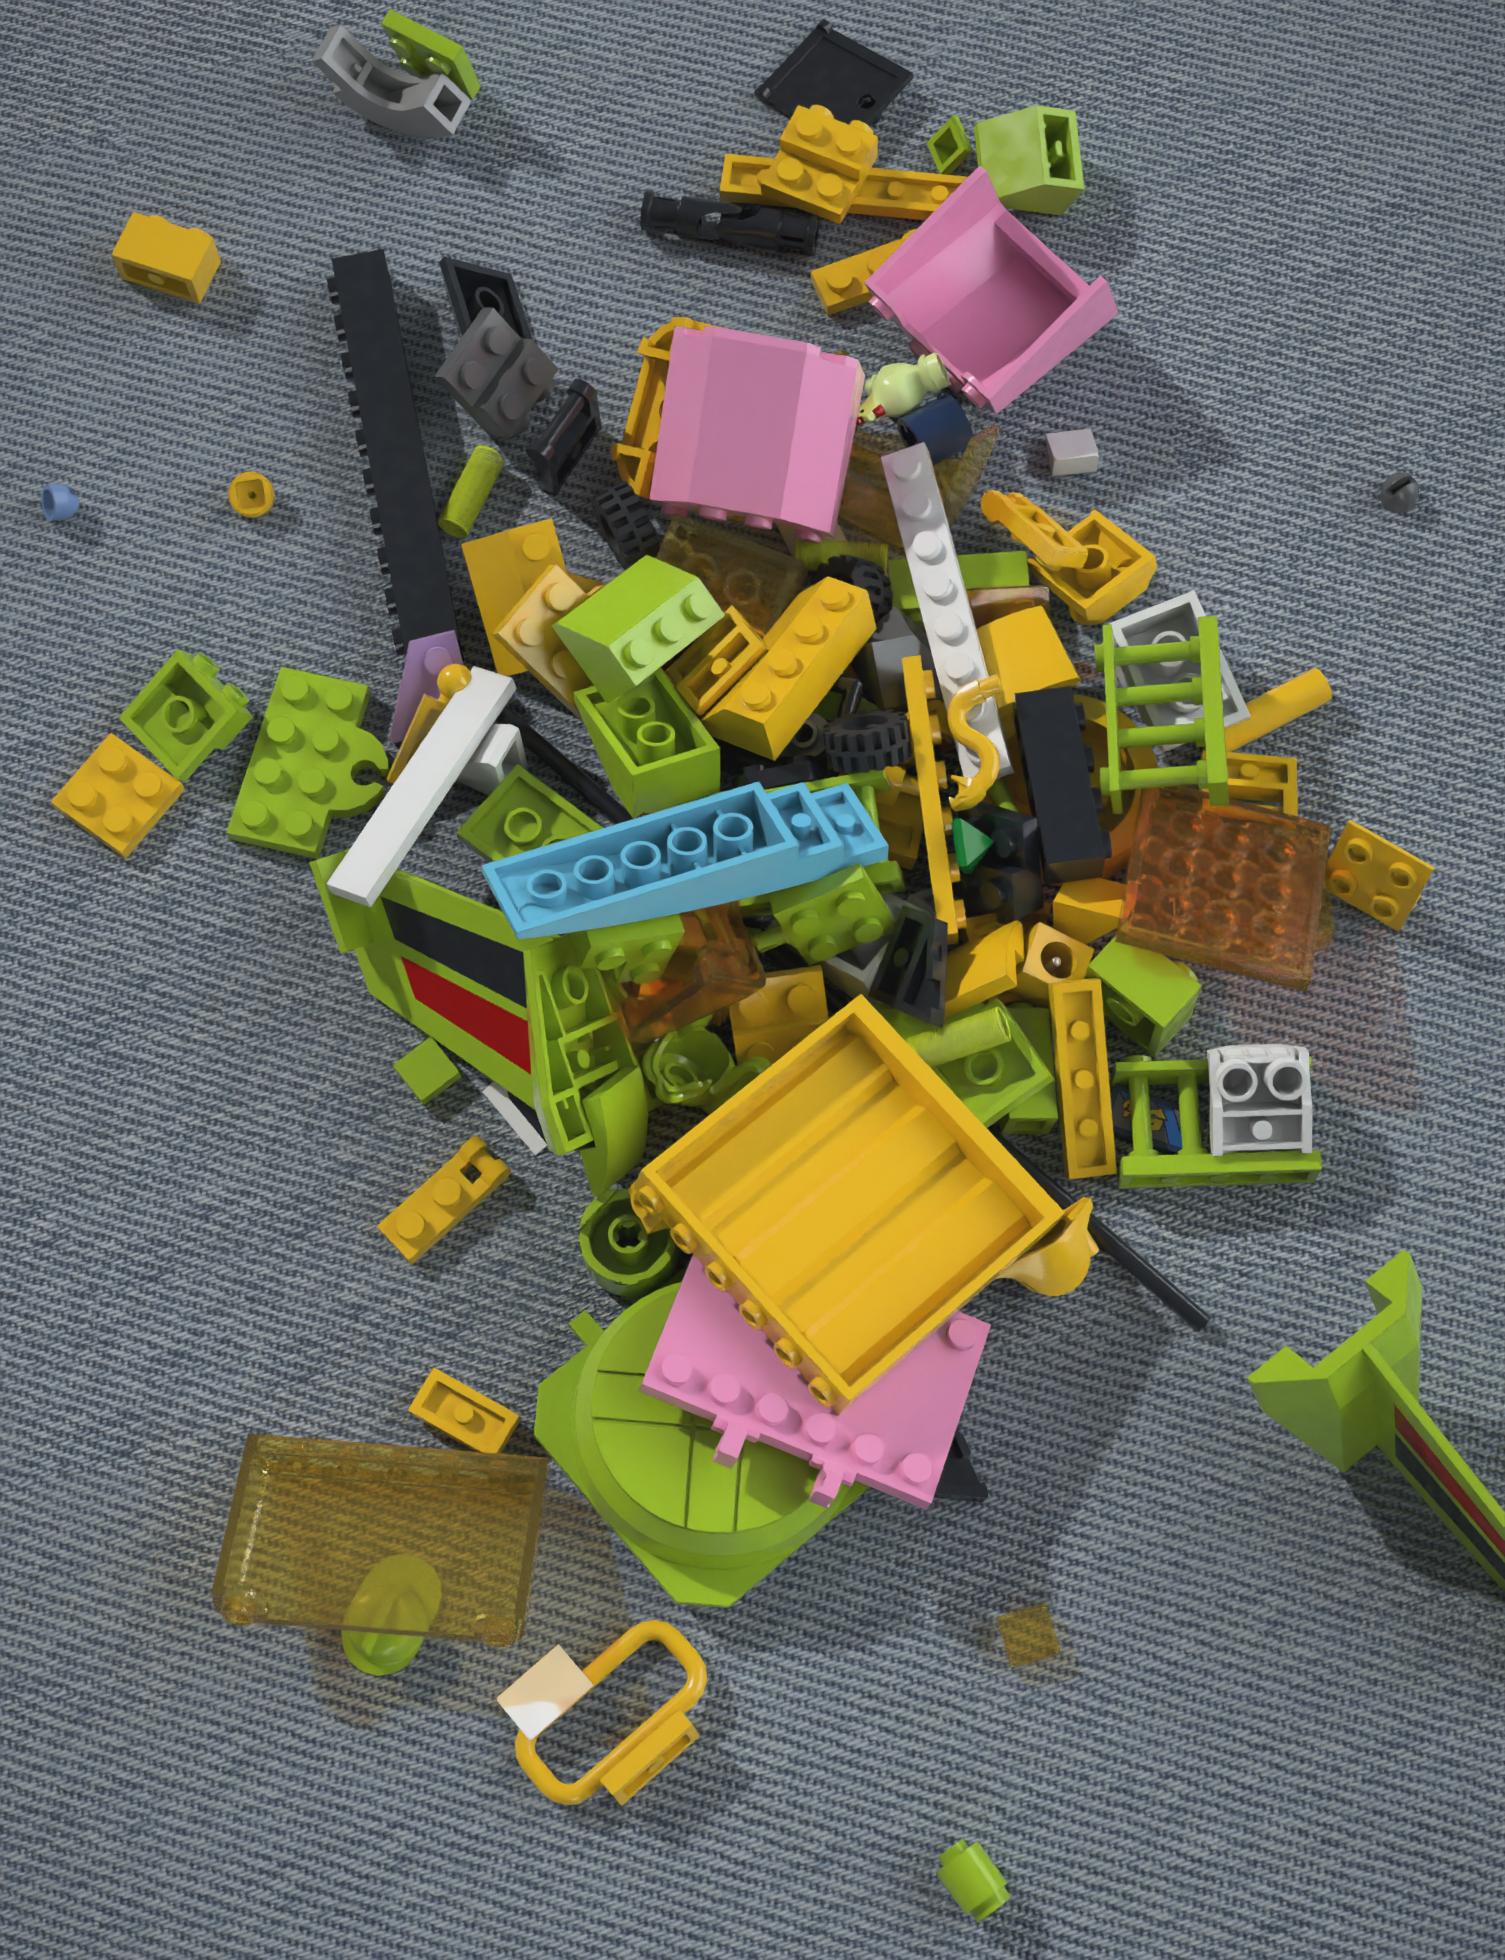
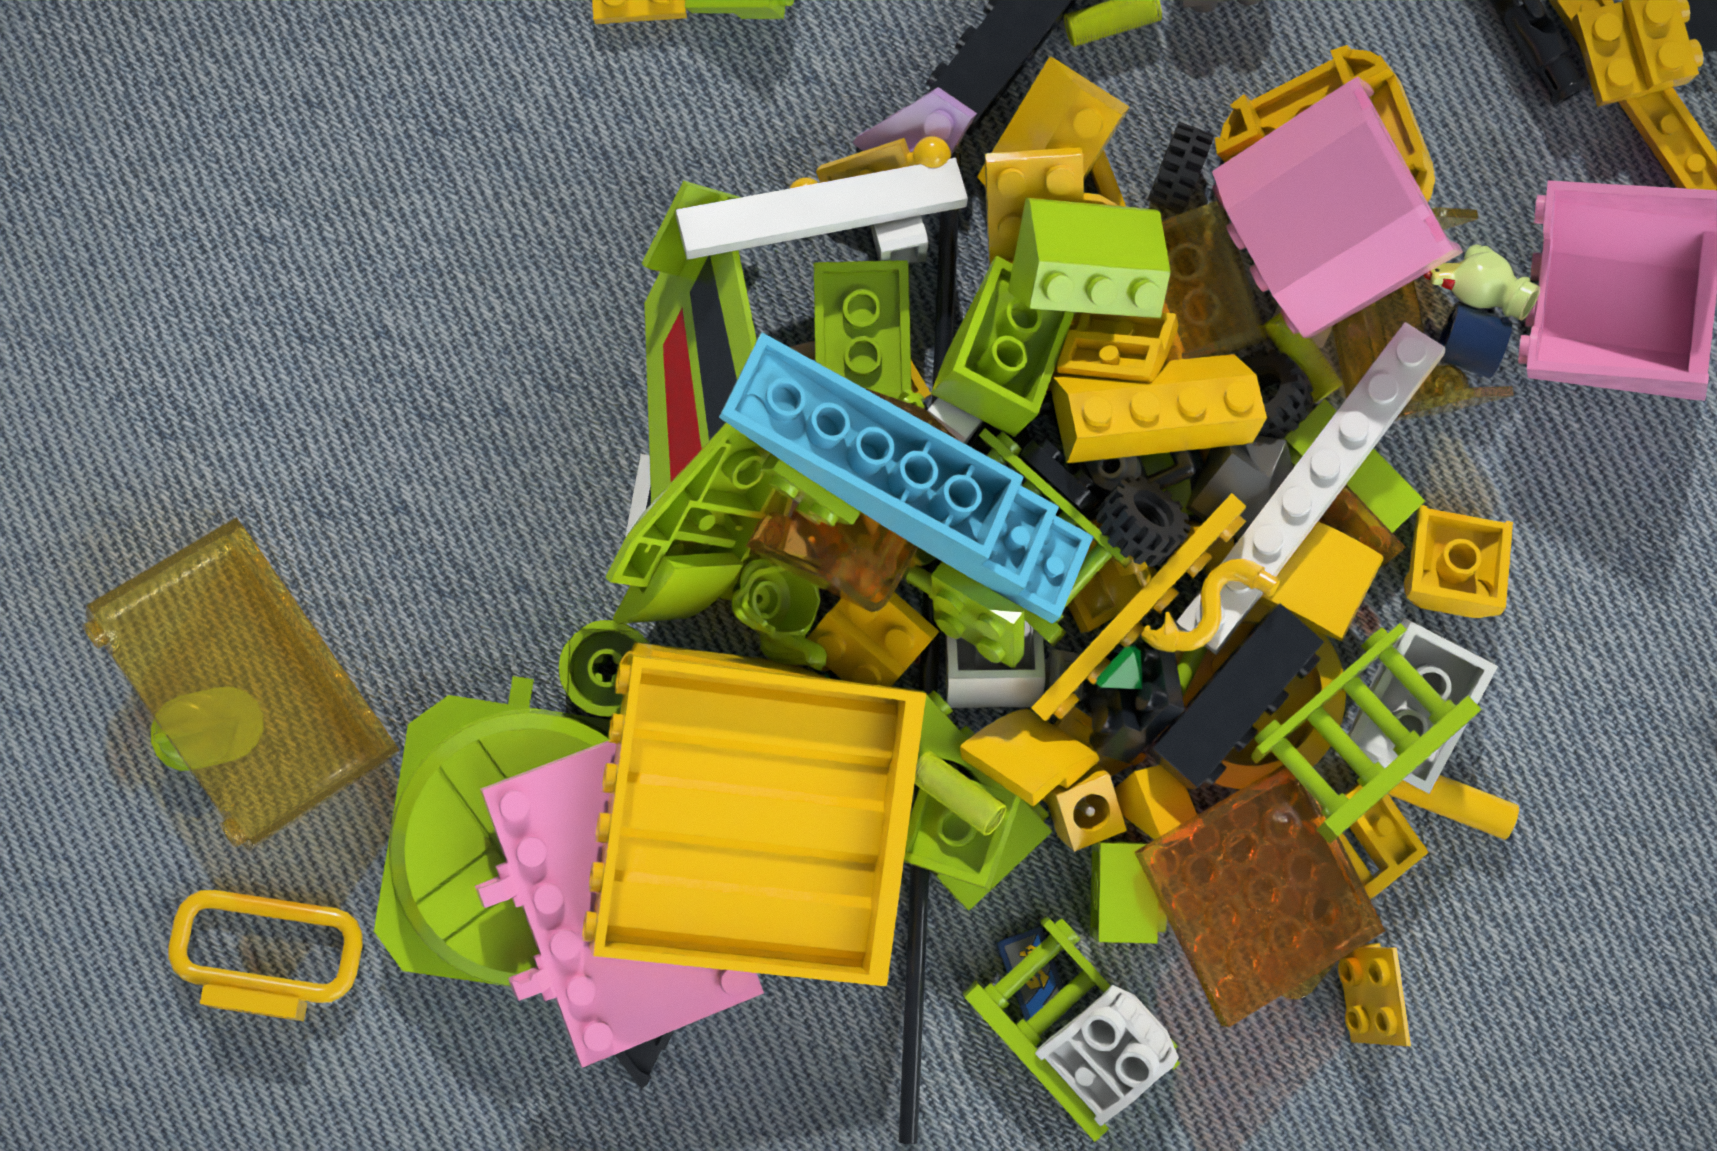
camera: 45 degrees right, 15 degrees up
(307, 764) = (783, 93): lime plate -> none
(427, 1071) = (619, 400): lime tile -> none
(443, 1200) = (531, 499): yellow plate -> none
(464, 1413) = (386, 656): yellow plate -> none
(544, 1692) = (240, 886): white sticker -> none
(566, 437) = (1217, 53): black plate -> none
(843, 282) = (1562, 157): yellow plate -> none
(914, 967) = (987, 712): black wing -> none
(1034, 529) = (1450, 492): yellow hinge -> none
(1060, 1257) = (870, 1004): yellow hat -> none
(1072, 452) = (1552, 459): white slope -> none
(1082, 1078) = (1016, 903): yellow plate -> none

